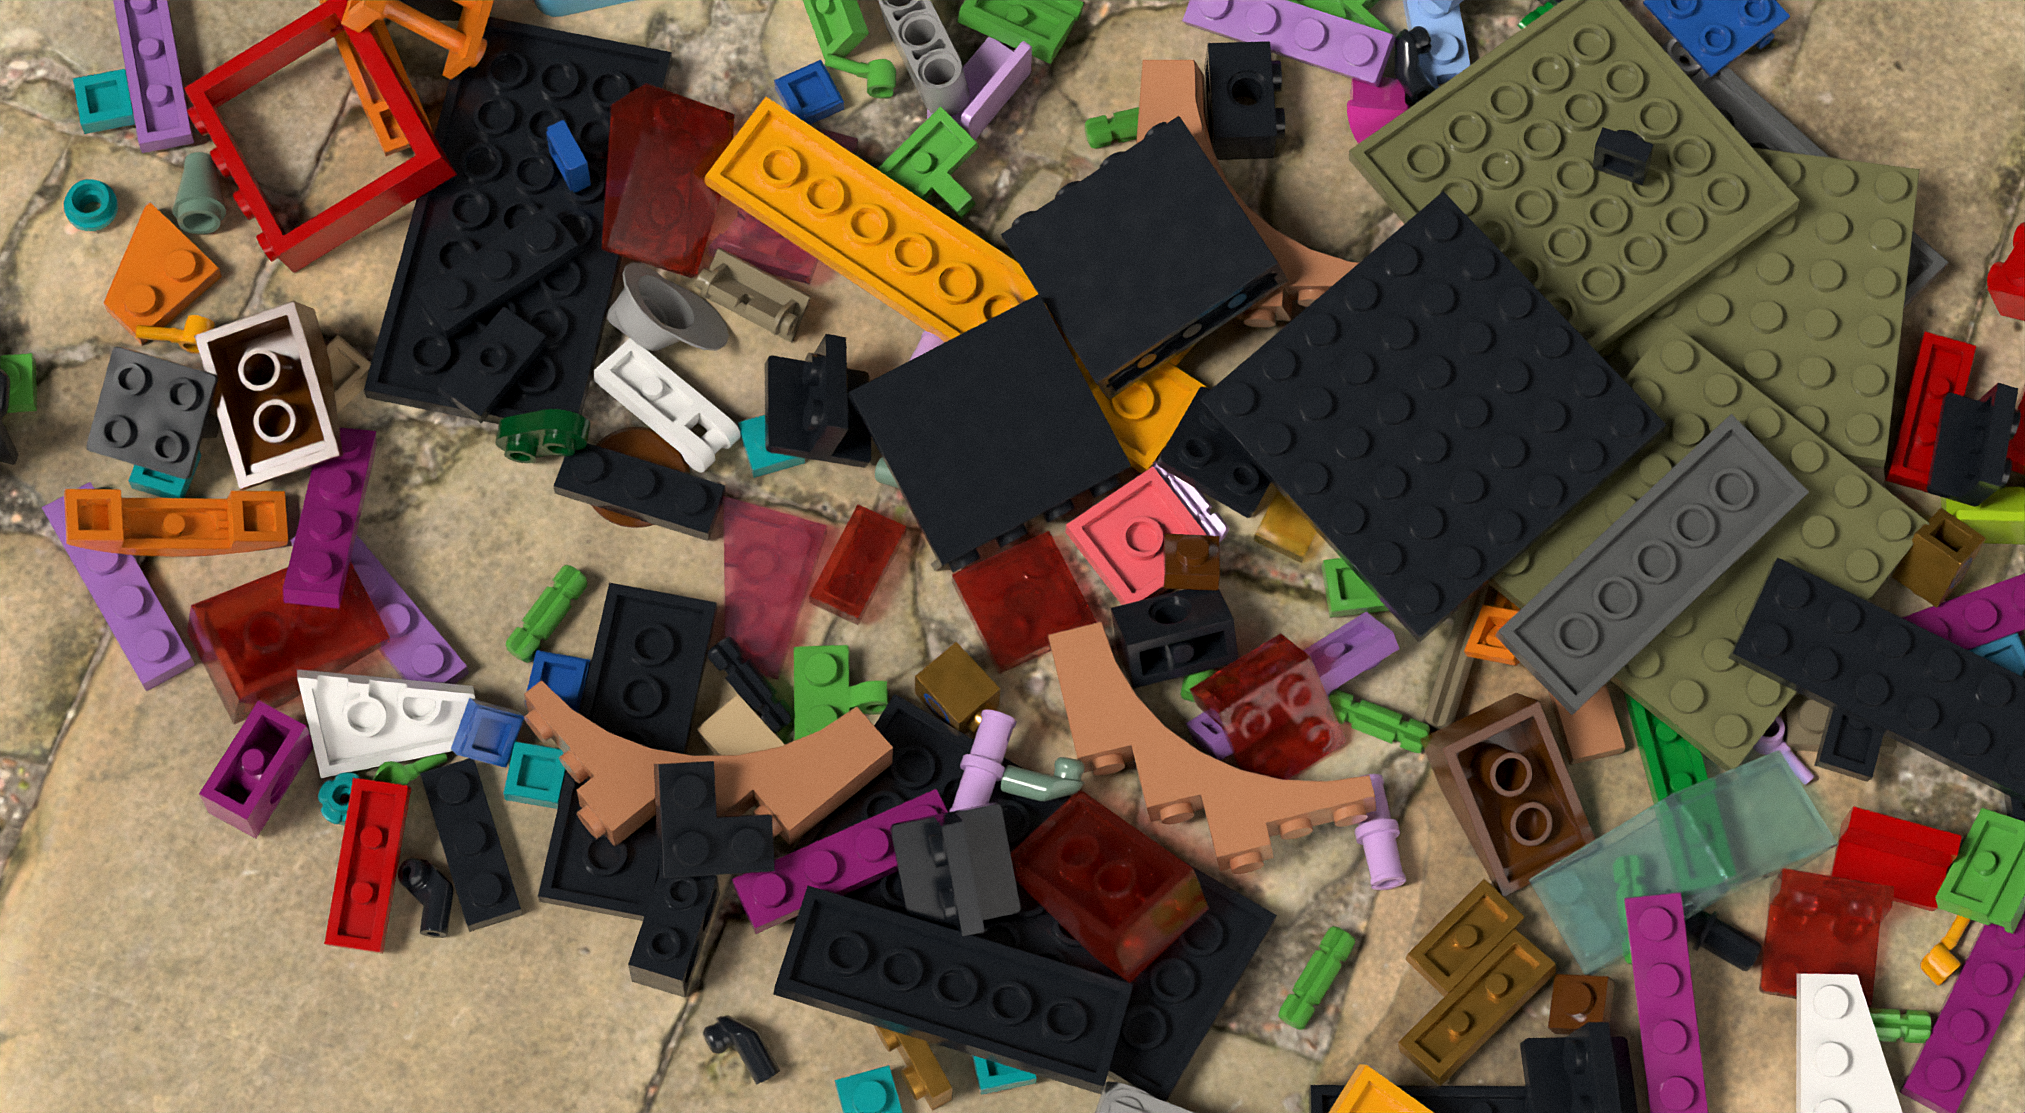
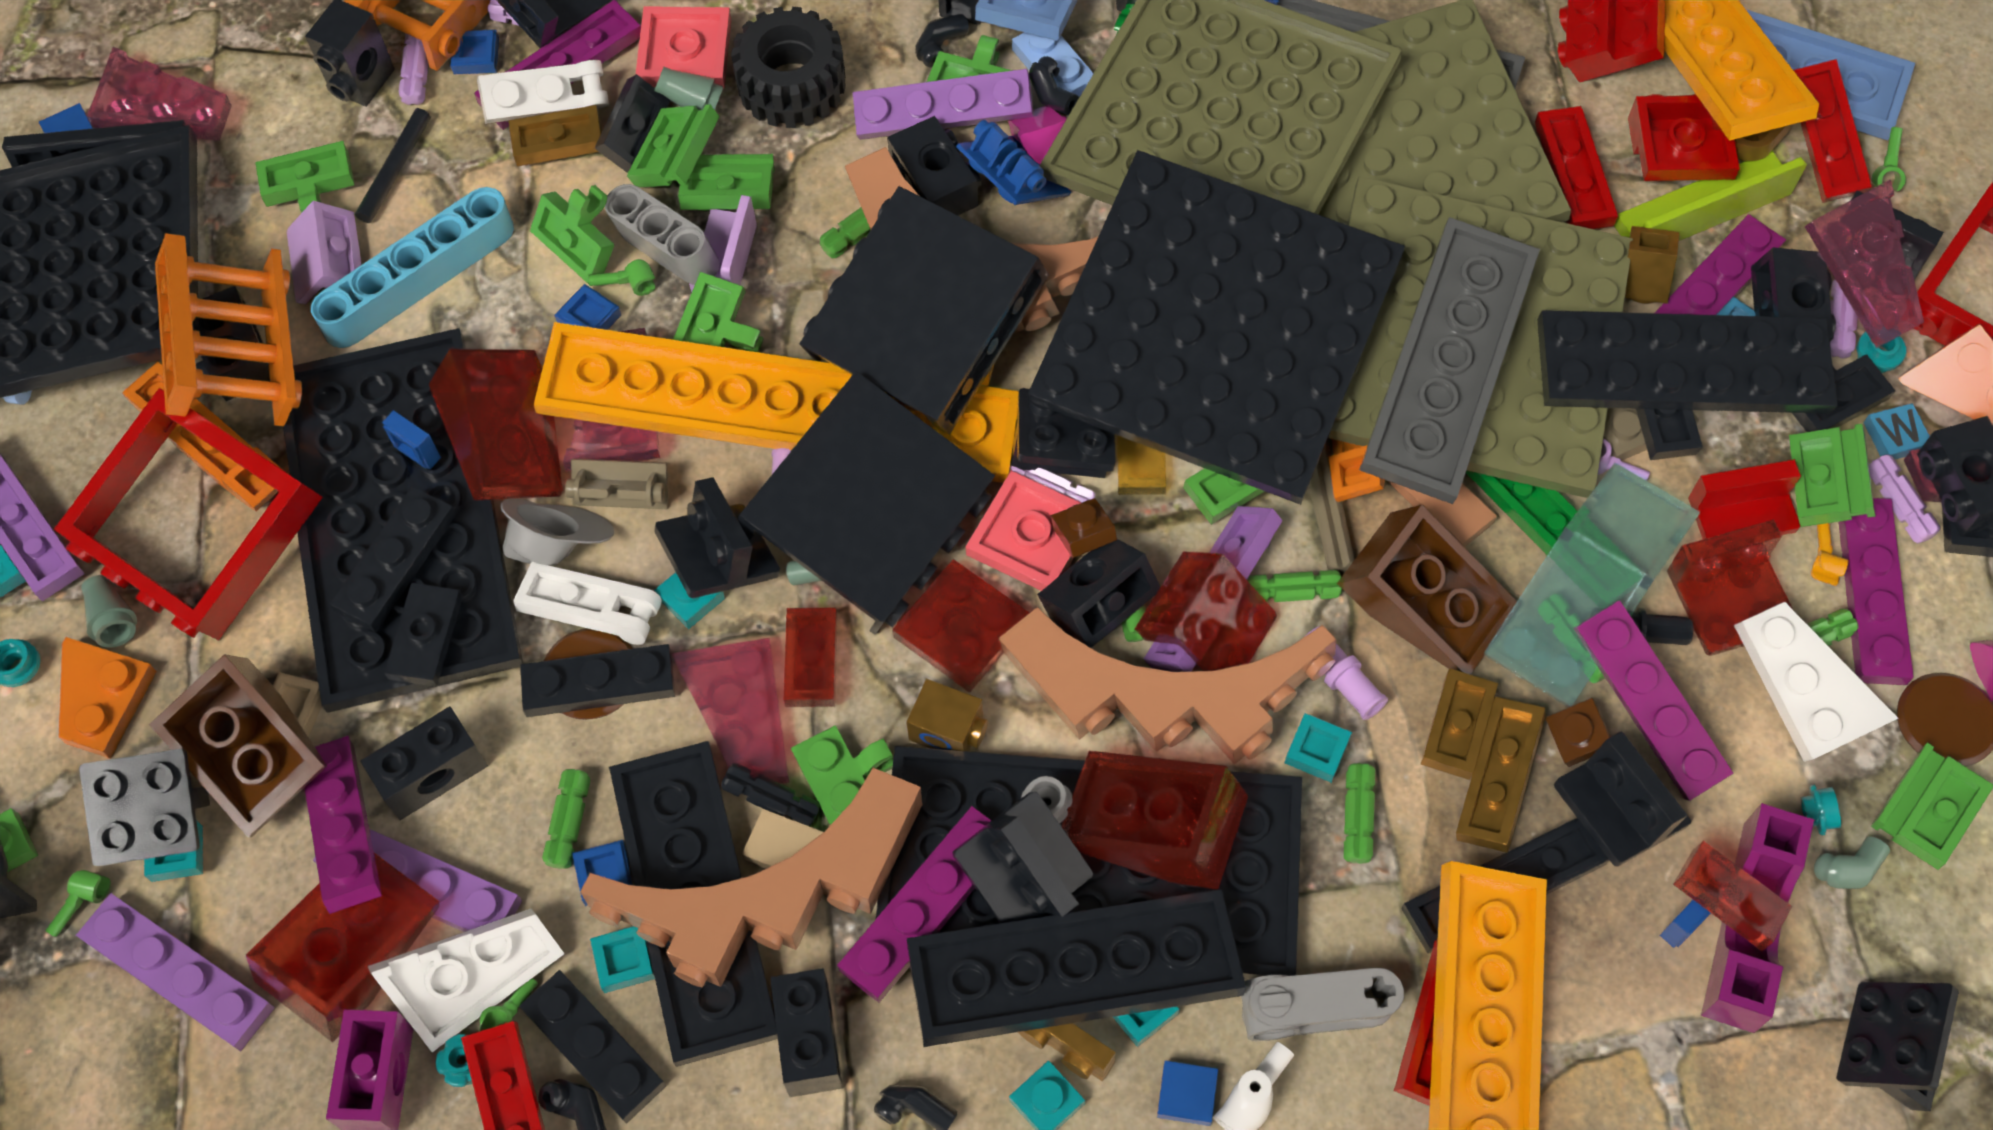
camera: 20 degrees left, 5 degrees down
(66, 463) = (80, 887): none -> bright green hand
(175, 525) = (201, 897): orange slope -> none
(185, 338) = (143, 734): light orange hand -> none
(436, 494) = (424, 763): none -> black brick
(487, 732) = (562, 942): blue tile -> none
(542, 434) = (493, 671): dark green plate -> none
(691, 834) = (793, 944): black plate -> none
(984, 762) = (1000, 765): lavender pin -> none
(1022, 808) = (1052, 789): none -> light grey plate
(1043, 786) = (1060, 761): sand green arm -> none
(1310, 894) = (1317, 747): none -> teal plate
(1319, 134) = (1008, 166): none -> blue hinge
(1623, 155) = (1254, 73): black plate -> none
(1973, 445) = (1630, 170): black bracket -> none

